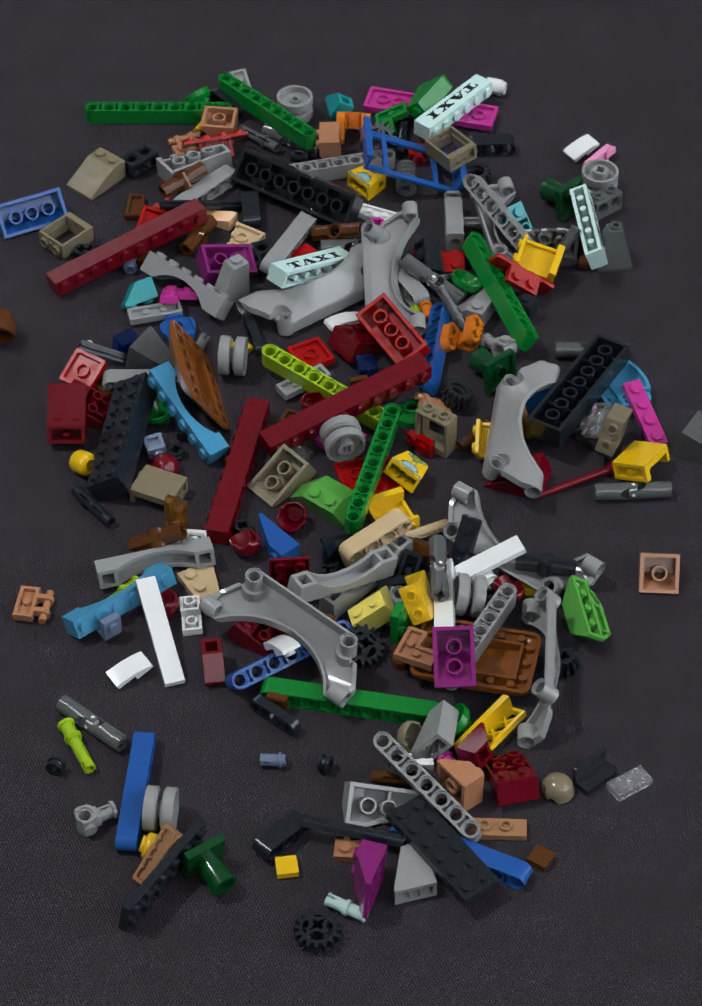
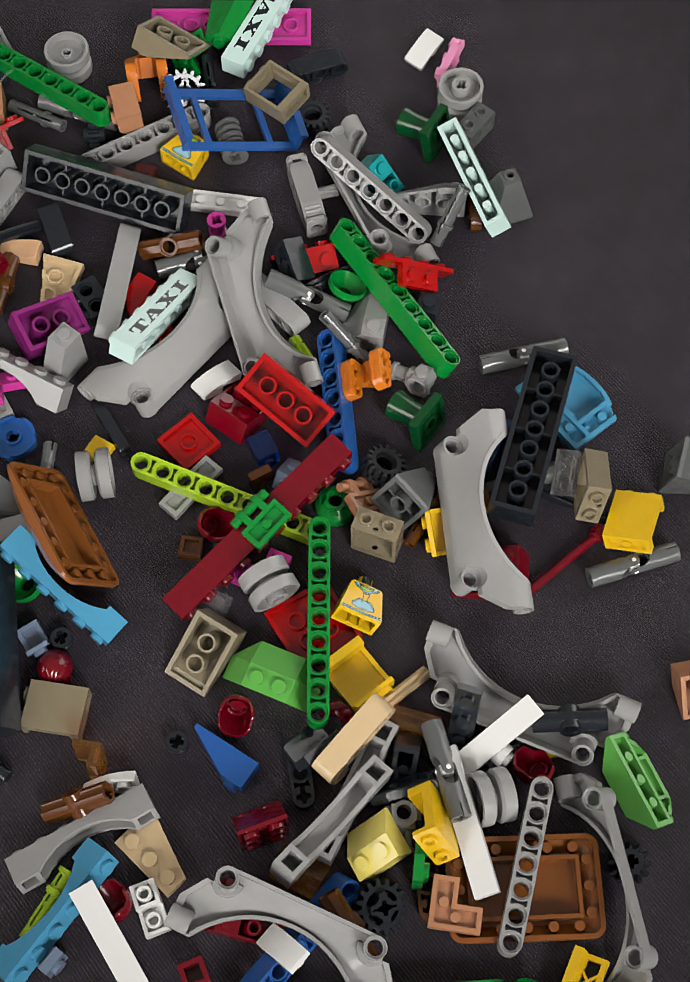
camera: 15 degrees left, 20 degrees up
(237, 471) = (147, 656): dark red brick -> none
(245, 543) = (187, 771): dark red hair -> none
(338, 102) = (119, 48): teal slope -> none
(350, 397) = (265, 524): none -> green plate
(372, 100) = (166, 40): none -> dark tan slope
(417, 157) = (235, 104): red plate -> none
(422, 443) = (363, 554): red plate -> none
(425, 307) = (308, 334): orange pin -> none
(454, 656) = (512, 930): magenta slope -> none
(468, 408) = (406, 495): none -> dark grey slope
(539, 258) = (428, 239): yellow panel -> none
(644, 412) = (615, 444): dark pink plate -> none

